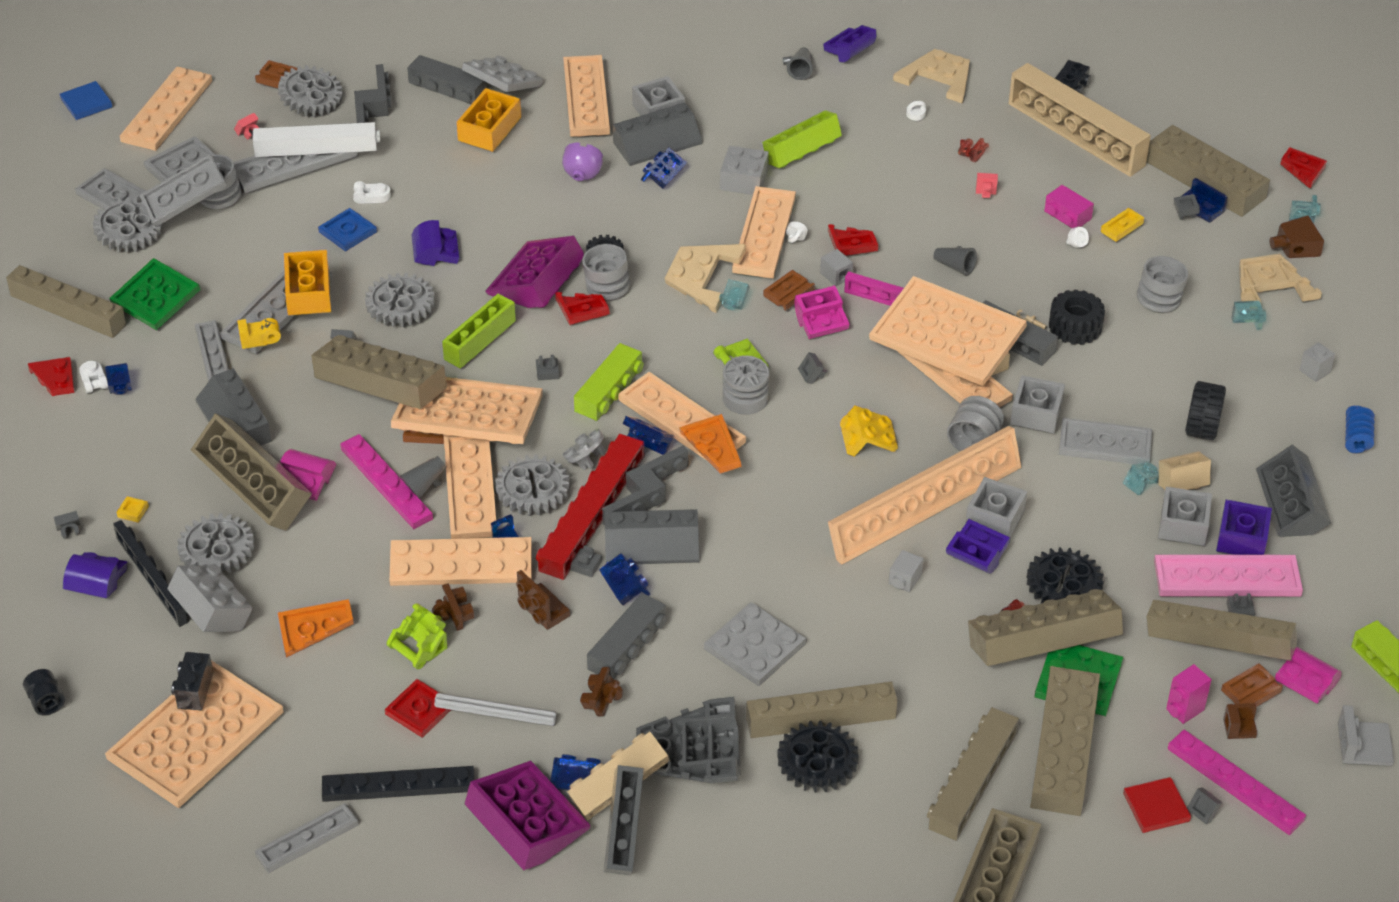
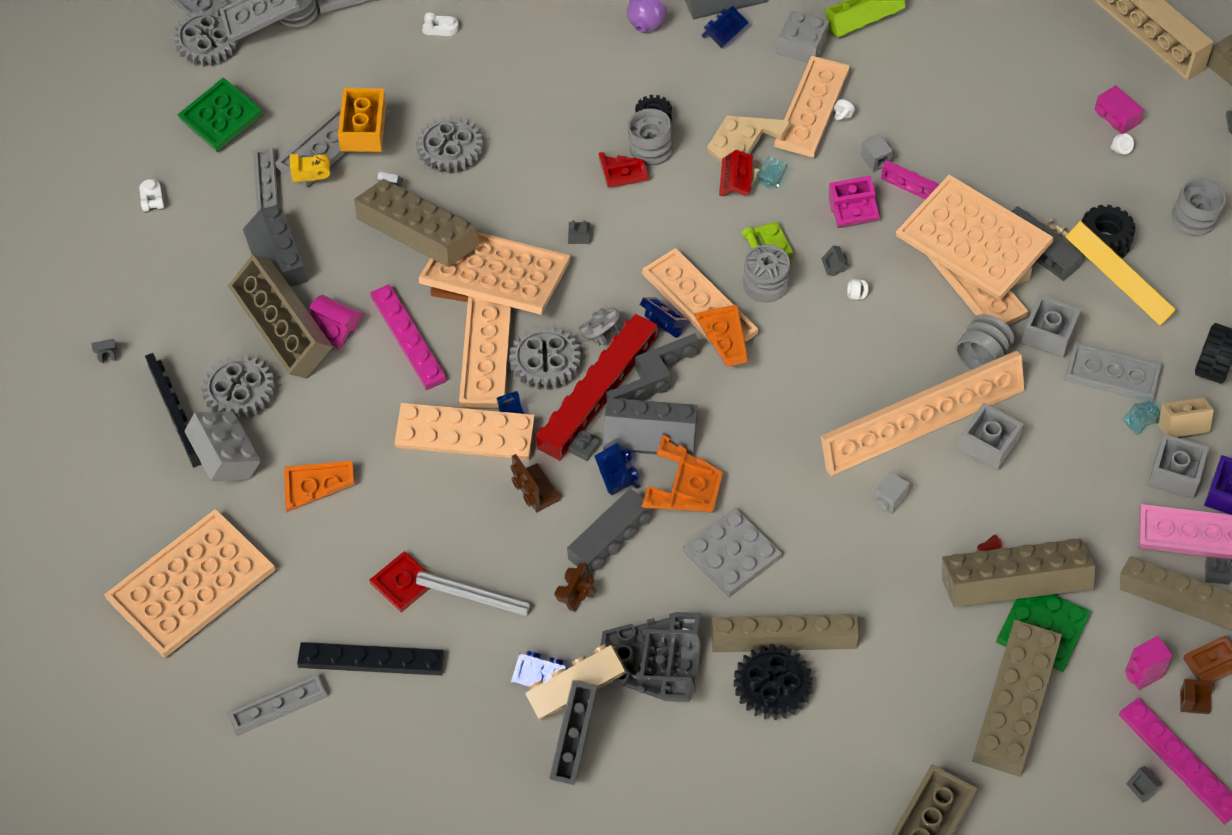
camera: 10 degrees right, 10 degrees up
(43, 692) = (57, 523): black wheel -> none
(54, 375) = (116, 190): red wing -> none
(66, 301) = (137, 114): dark tan brick -> none
(93, 574) = (121, 405): dark purple brick -> none
(118, 379) = (173, 201): clear blue bracket -> none
(132, 509) = (167, 339): yellow tile -> none
(192, 681) = (193, 531): black brick -> none
(347, 229) = (412, 62): blue tile -> none
(423, 476) = (441, 338): dark grey piece -> none
(426, 630) = (421, 504): lime piece -> none
(434, 243) = (491, 87): dark purple brick -> none
(450, 606) = (450, 470): reddish brown hips -> none
(479, 331) = (518, 187): lime brick -> none
(525, 813) = (484, 708): magenta slope -> none
(538, 271) = (585, 127): magenta slope -> none
(608, 381) = (635, 254): lime brick -> none
(698, 298) = (736, 173): none -> red panel
(706, 583) = (693, 486): none -> orange wing
(786, 288) = (824, 171): dark orange plate -> none
(836, 391) = (854, 289): none -> white tile
(852, 240) = (897, 124): red wing -> none
(864, 427) = (879, 333): yellow bracket -> none
(957, 258) = (998, 155): dark grey piece -> none
(972, 774) = (921, 719): dark tan brick -> none
(975, 152) = (1033, 39): clear red piece -> none
(978, 546) = (966, 474): dark purple brick -> none
(986, 184) = (1040, 76): coral tile -> none
(1050, 572) = (1028, 509): black gear -> none
(1097, 350) = (1121, 273): none -> yellow tile
(1122, 224) = (1170, 134): yellow plate -> none
(1156, 805) = (1097, 775): red tile -> none

